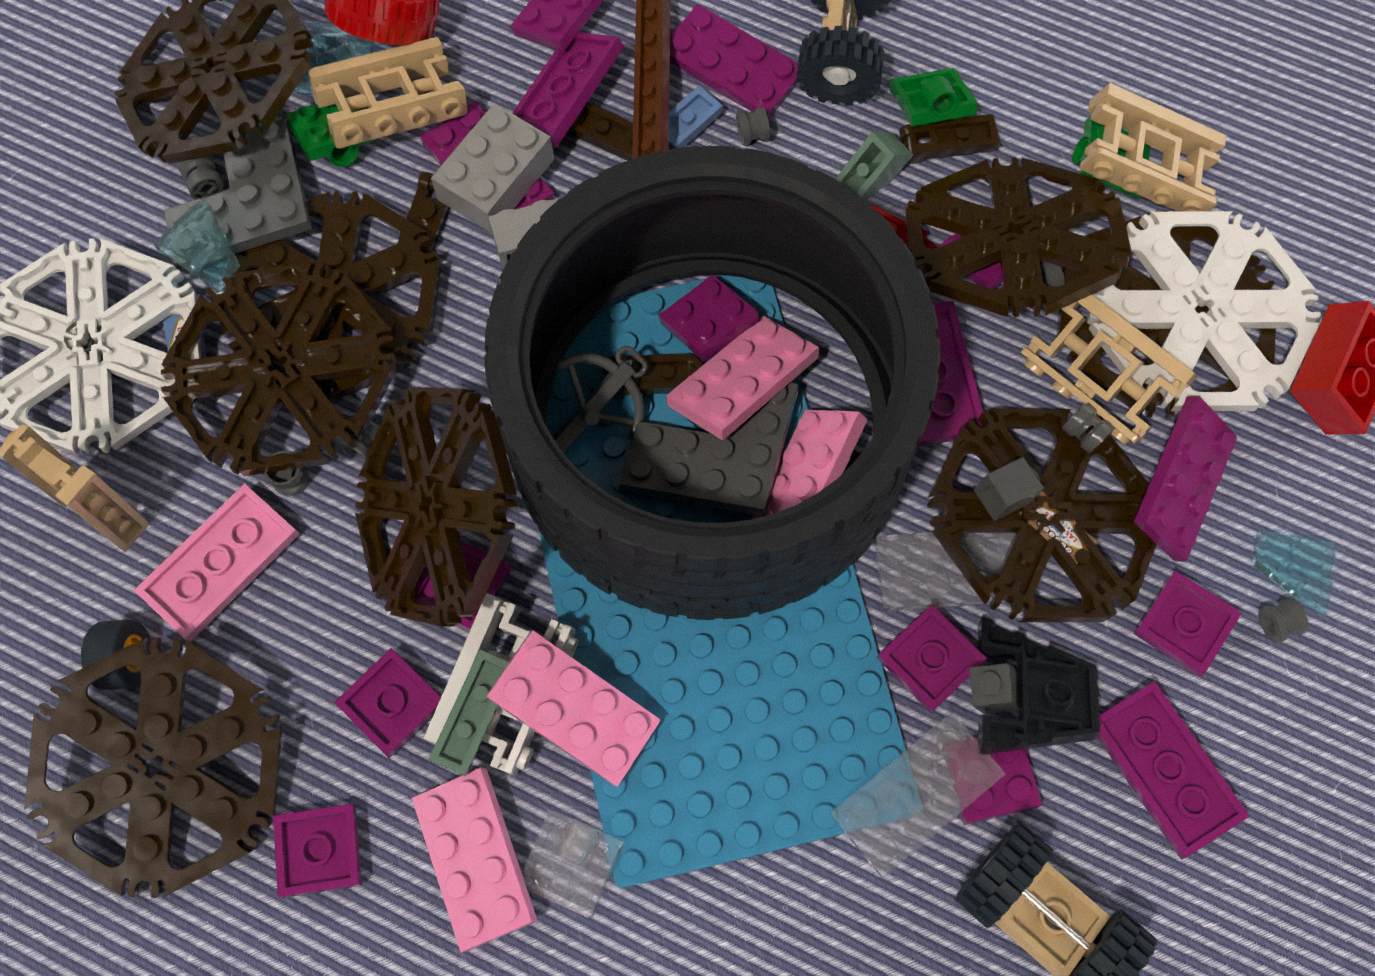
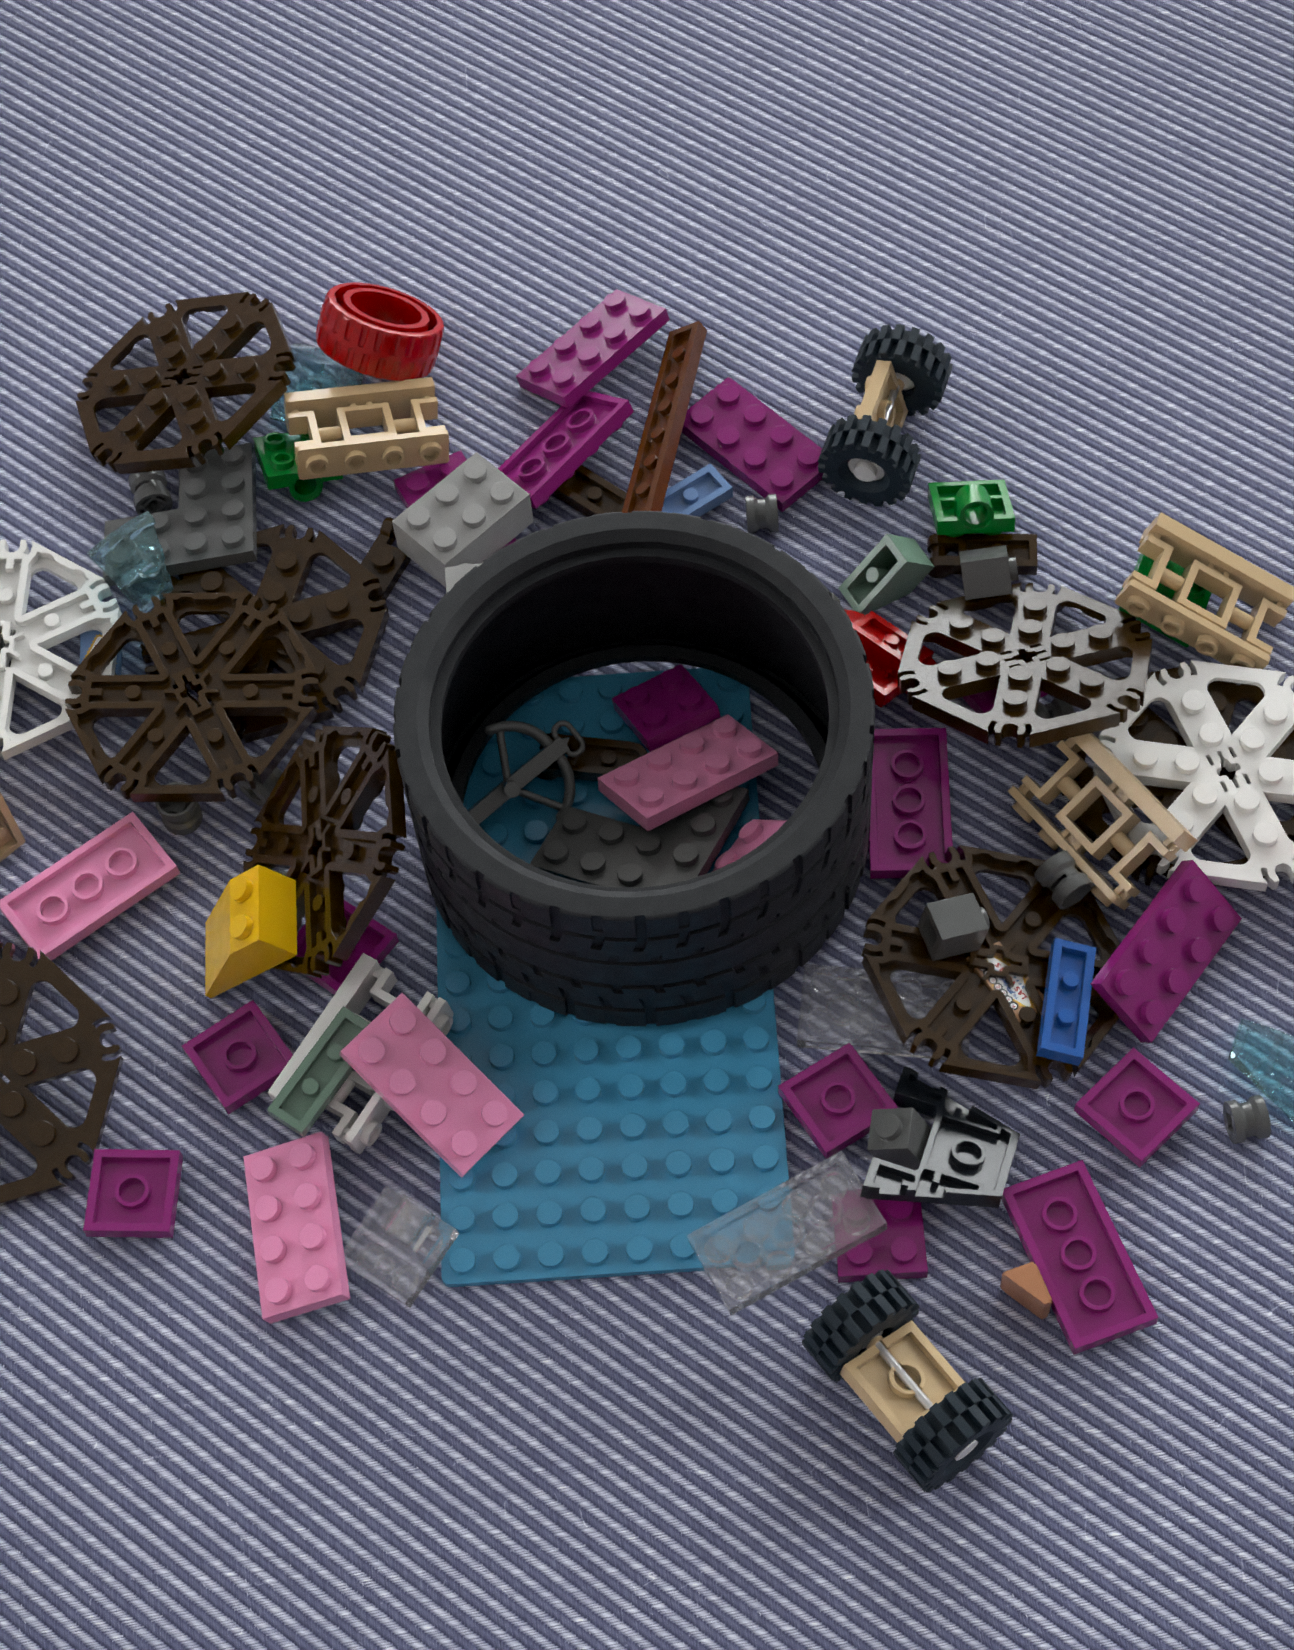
camera: 15 degrees right, 10 degrees down
(377, 585) = (250, 929): none -> yellow slope
(961, 154) = (987, 572): none -> dark grey brick
(1116, 541) = (1066, 1002): none -> blue plate
(1134, 808) = (1027, 1288): none -> nougat slope

